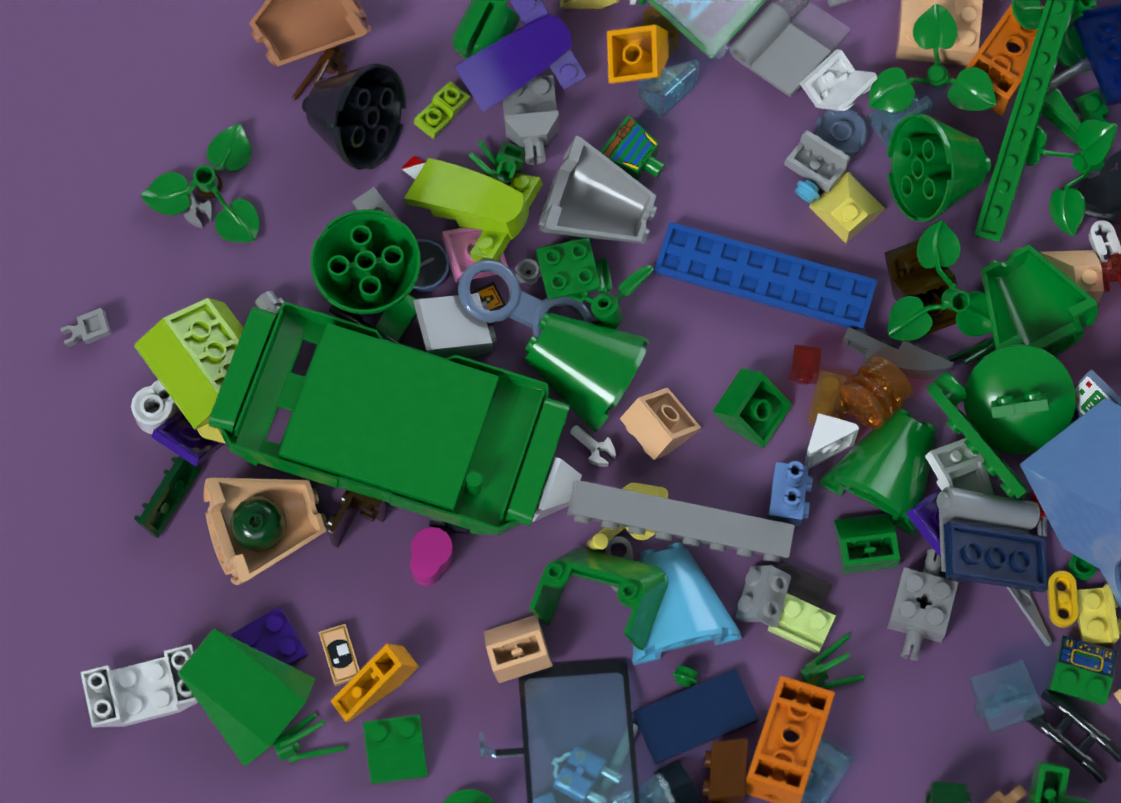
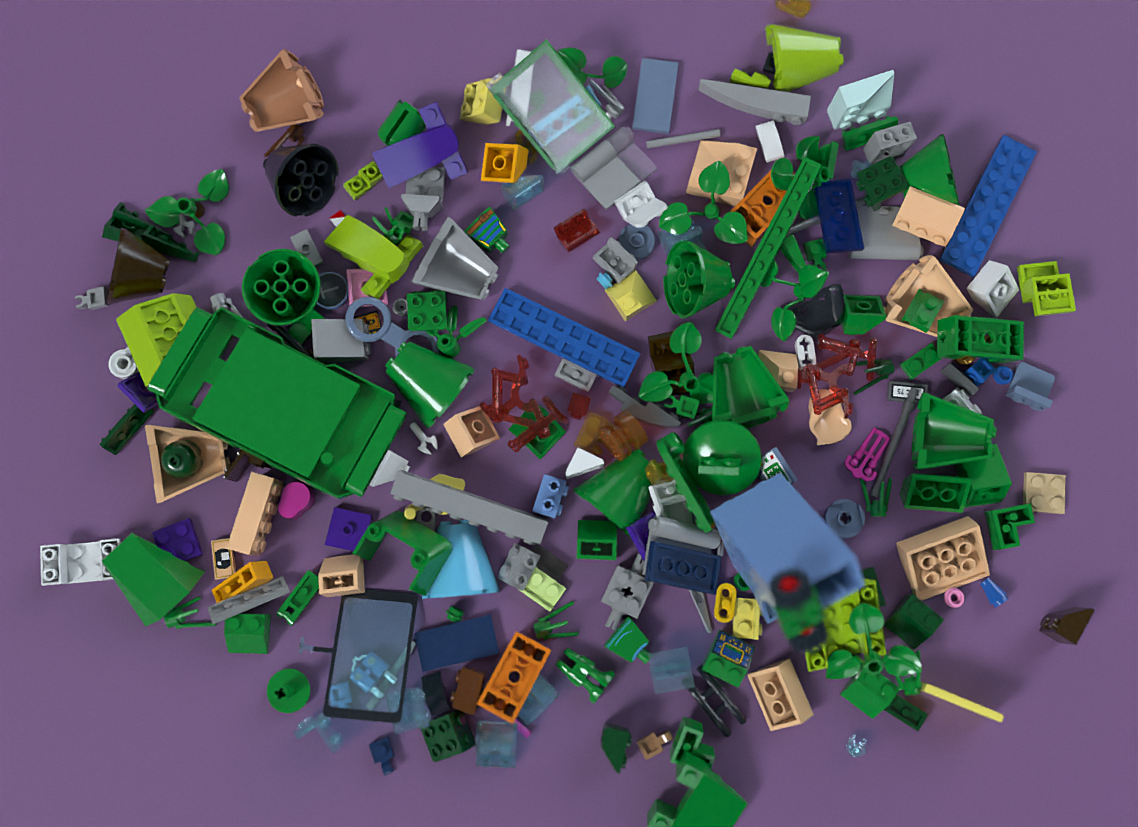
camera: 10 degrees right, 10 degrees up
(133, 228) = (147, 232): none -> dark green wedge
(145, 274) = (136, 270): none -> dark brown cone
(378, 581) = (255, 514): none -> light nougat brick
(390, 699) = (248, 600): none -> light grey tile
(461, 688) = (300, 597): none -> green plate
(510, 586) = (346, 528): none -> dark purple plate
(699, 388) = (500, 412): none -> clear red piece
(753, 130) = (575, 230): none -> clear red bracket
(791, 325) = (575, 375): none -> light grey plate
(877, 725) = (578, 674): none -> green piece
(936, 433) = (657, 473): none -> clear yellow bracket
(938, 673) = (628, 642): none -> green torso
(955, 342) = (685, 407): none -> green plate

